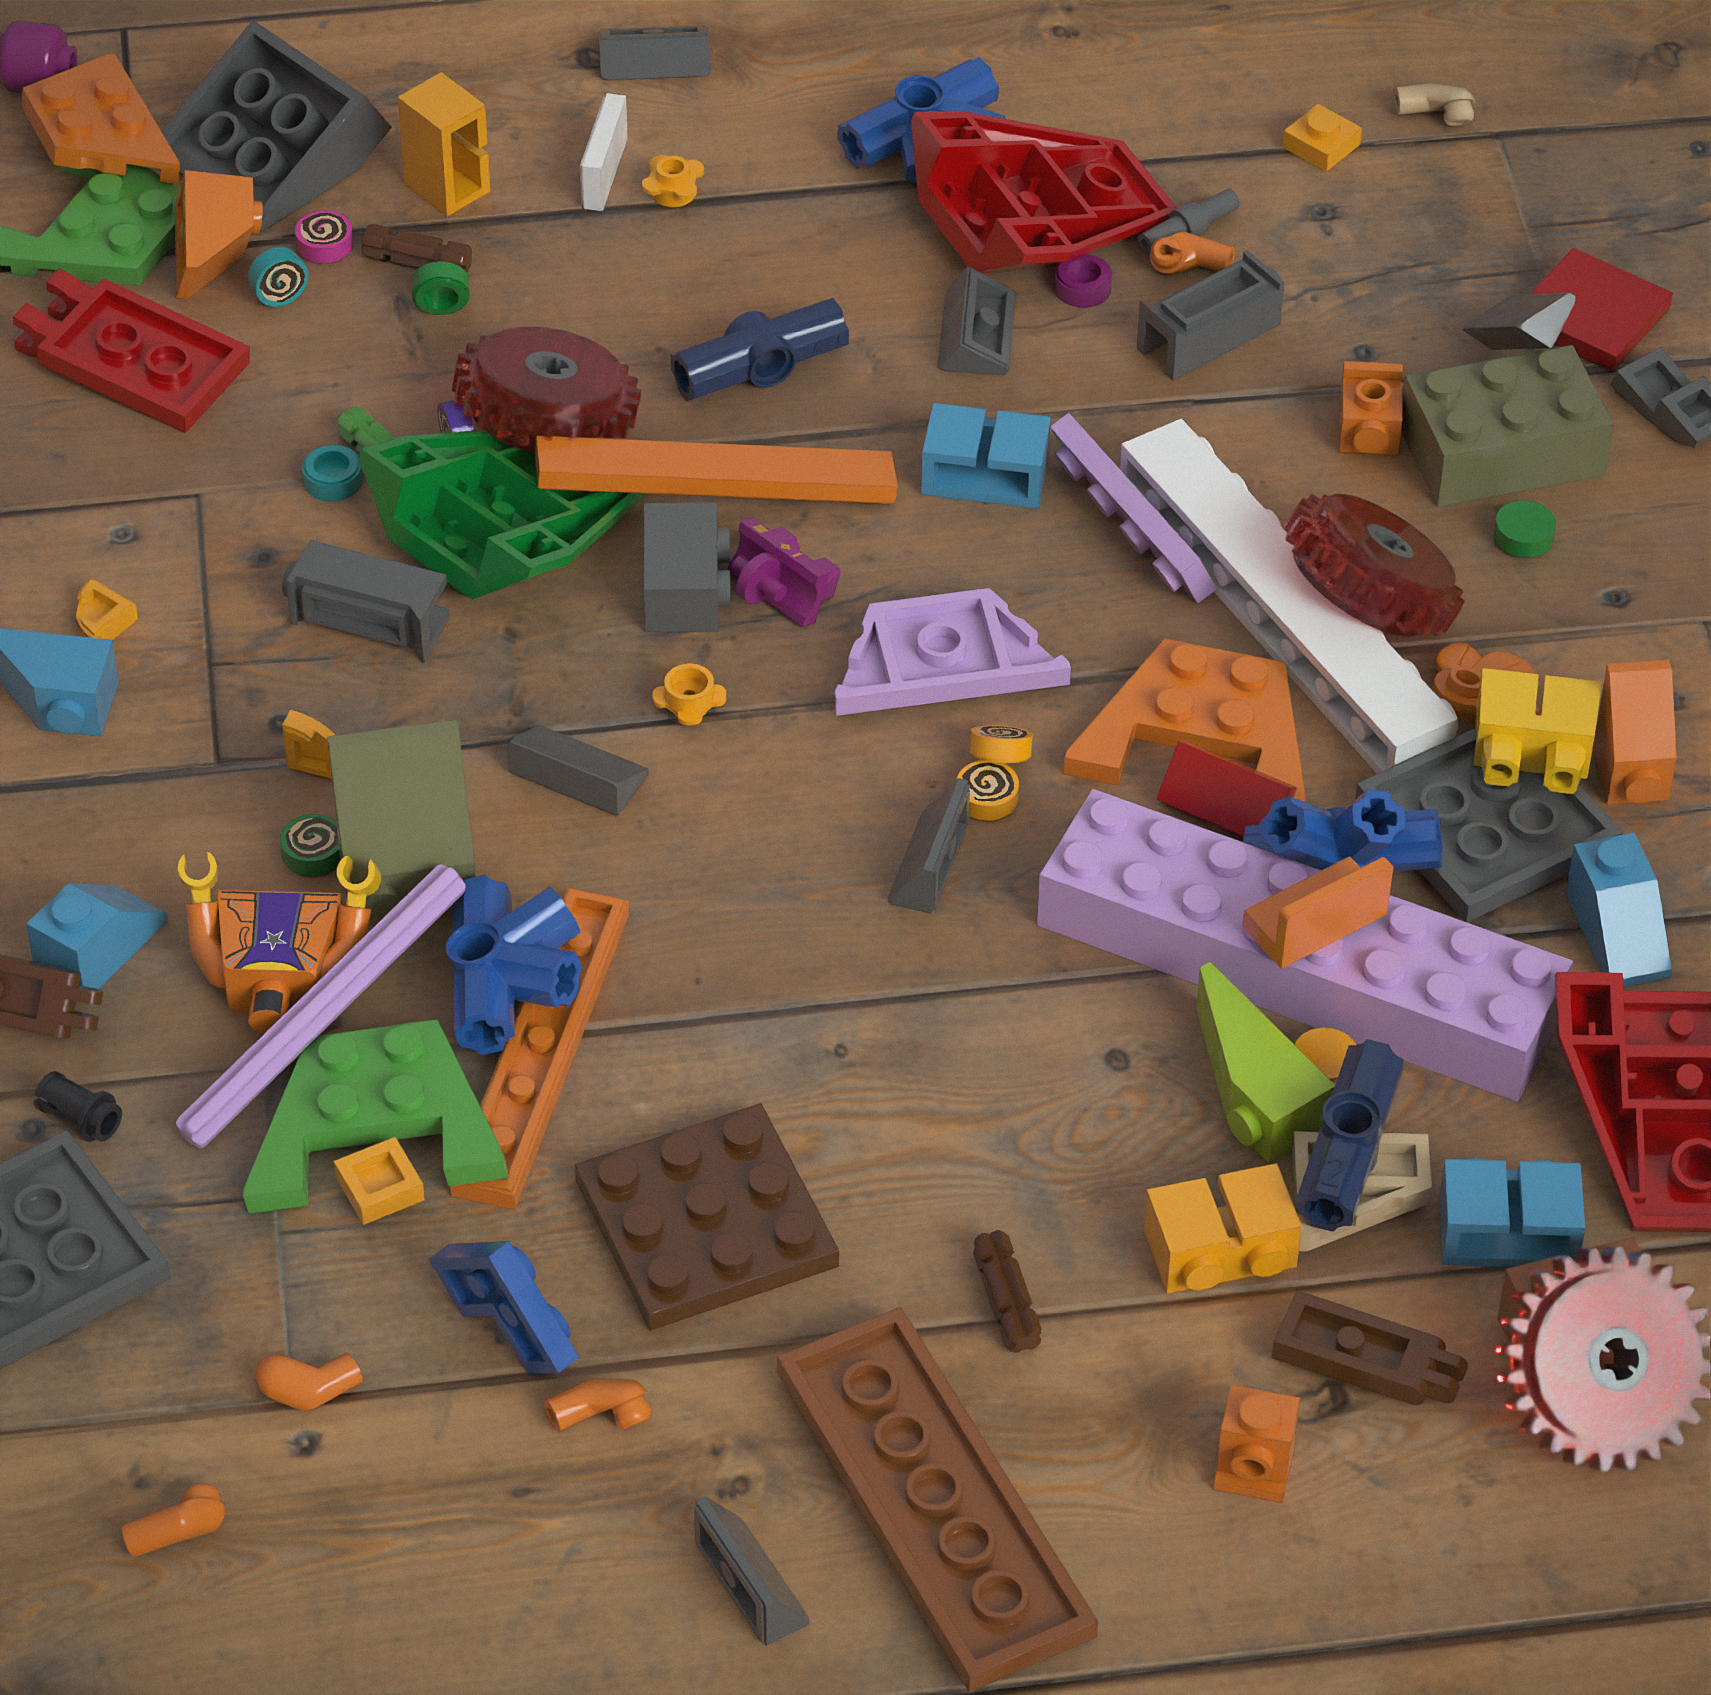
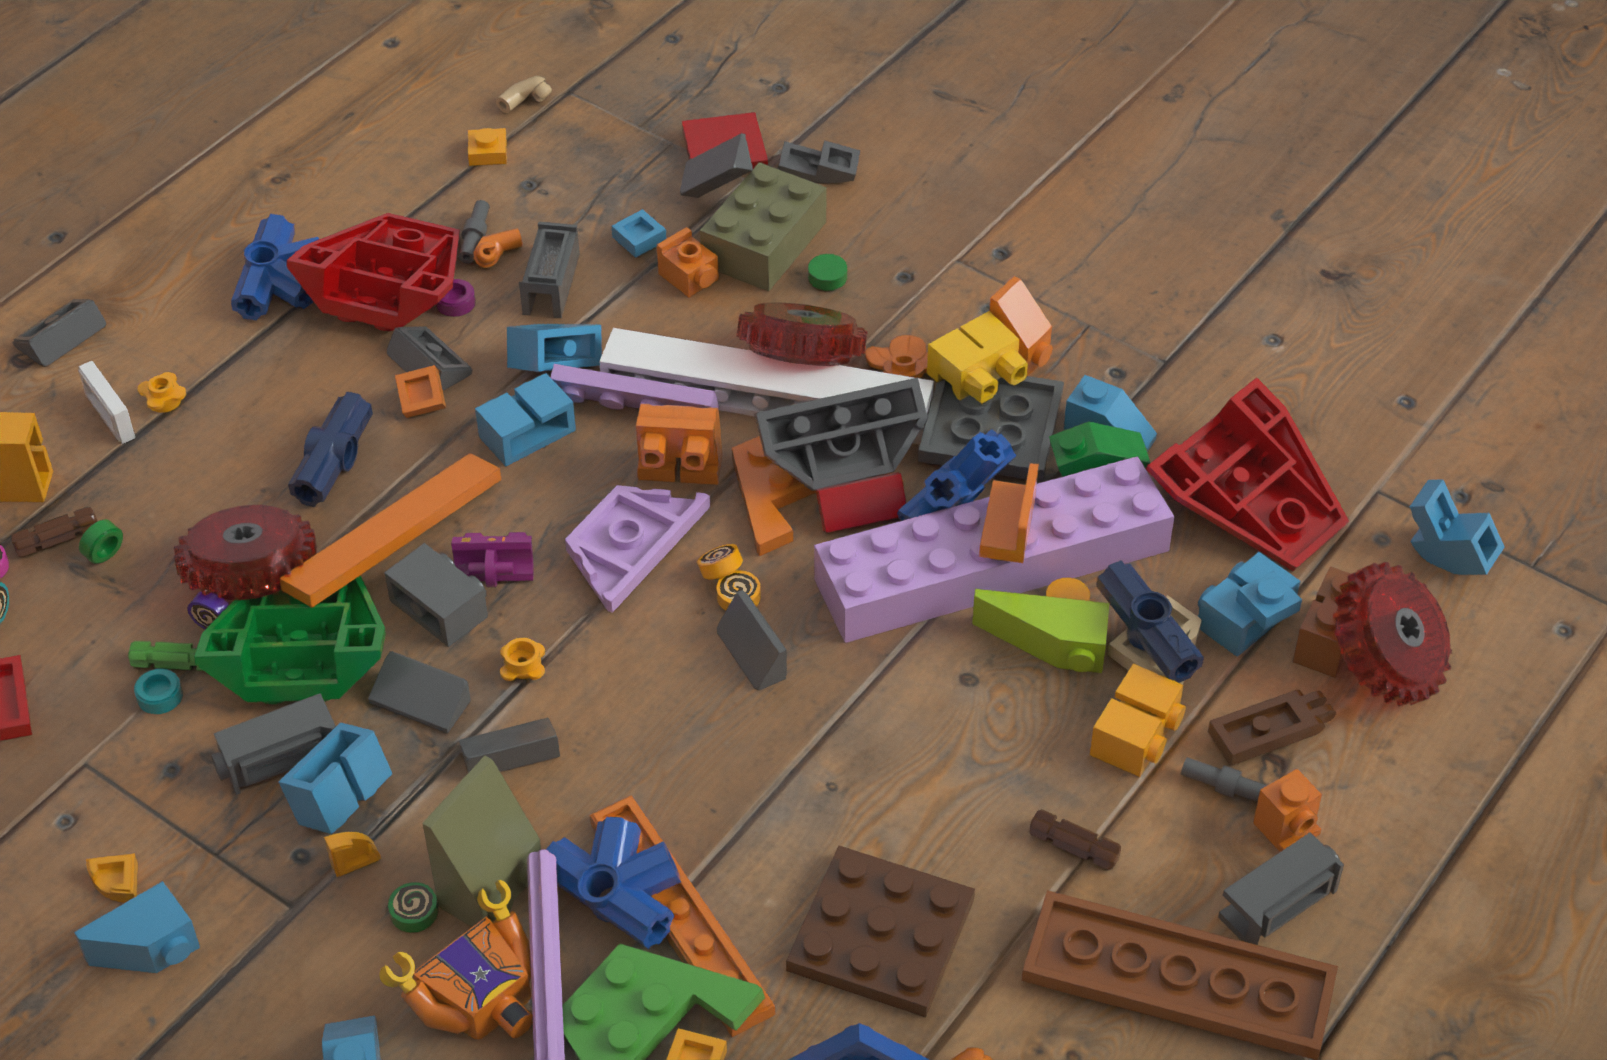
camera: 45 degrees left, 0 degrees up
(371, 666) = (334, 776): none -> dark azure piece
(556, 652) = (420, 692): none -> dark grey slope
(916, 352) = (420, 391): none -> orange plate
(1096, 588) = (676, 433): none -> orange hips
(1102, 395) = (543, 345): none -> dark azure slope
(1145, 1505) = (1281, 889): none -> dark grey window
(1240, 1360) = (1225, 780): none -> dark grey bar
(1266, 697) = (844, 434): none -> dark grey wedge
(1360, 338) = (638, 233): none -> dark azure plate
(1511, 1215) = (1268, 599): none -> dark azure plate
(1546, 917) = (1095, 446): none -> green slope

